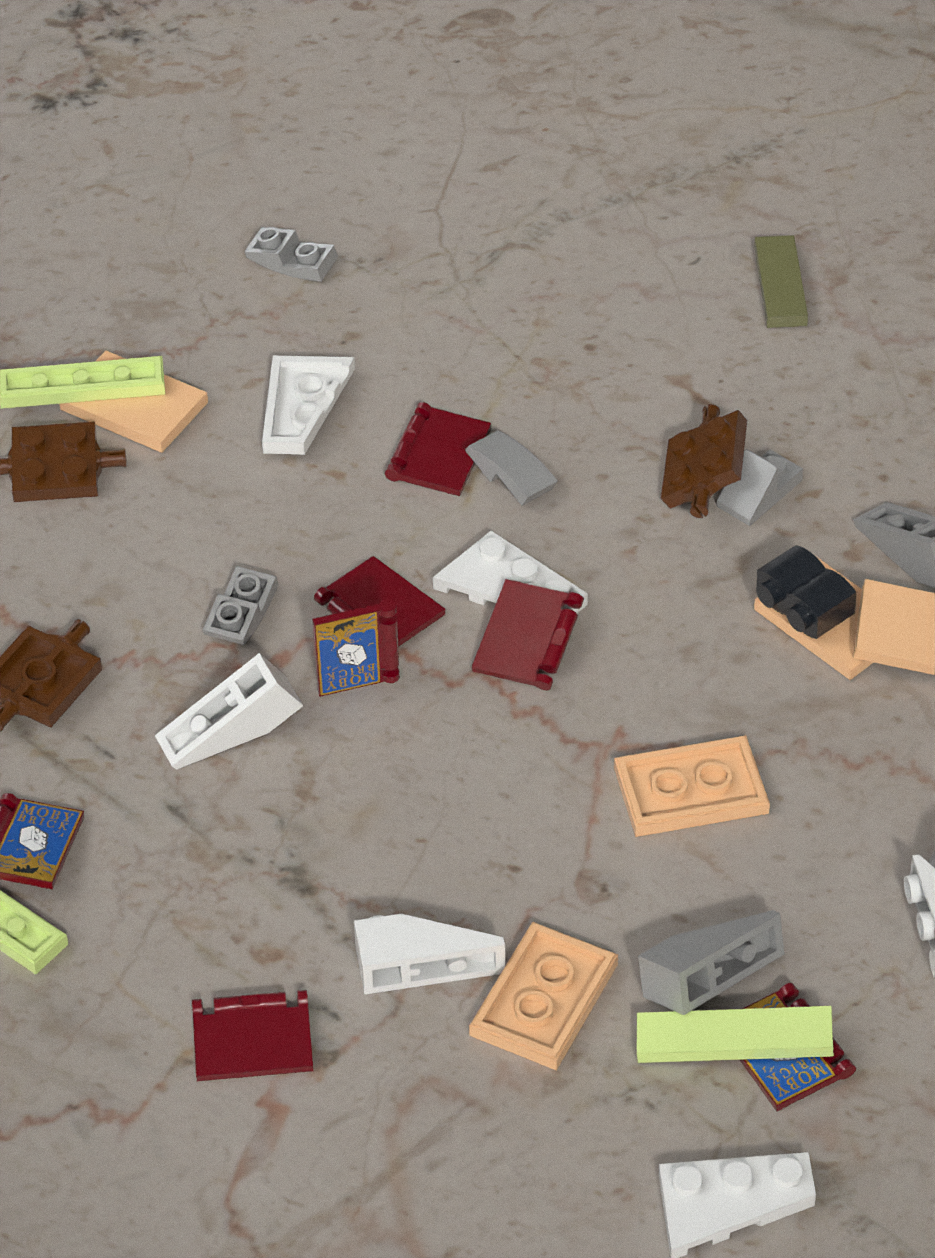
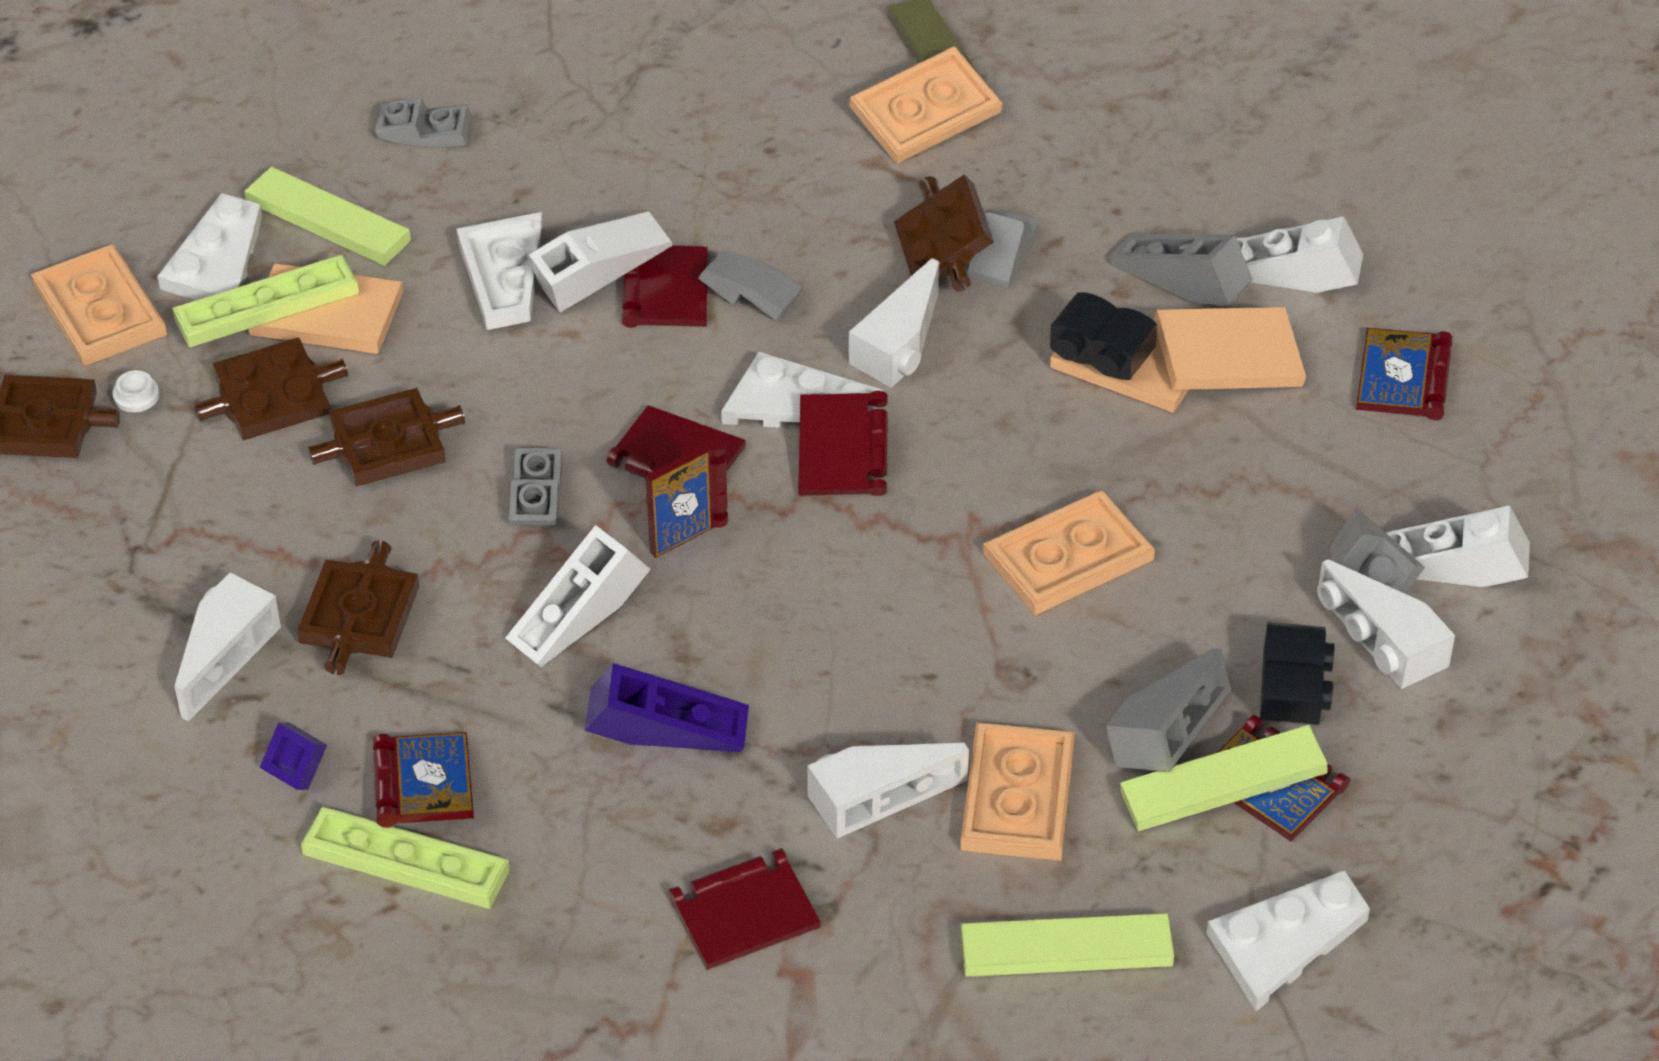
camera: 20 degrees left, 0 degrees up
(63, 327) = (215, 251): none -> white wing
(131, 528) = (387, 436): none -> reddish brown plate
(172, 318) = (328, 216): none -> yellowish green tile
(257, 840) = (663, 713): none -> dark purple slope
(380, 408) = (595, 256): none -> white slope
(523, 1149) = (1067, 945): none -> yellowish green tile
(624, 541) = (894, 333): none -> white slope
(746, 336) = (925, 105): none -> light nougat tile
(845, 953) = (1294, 673): none -> black brick

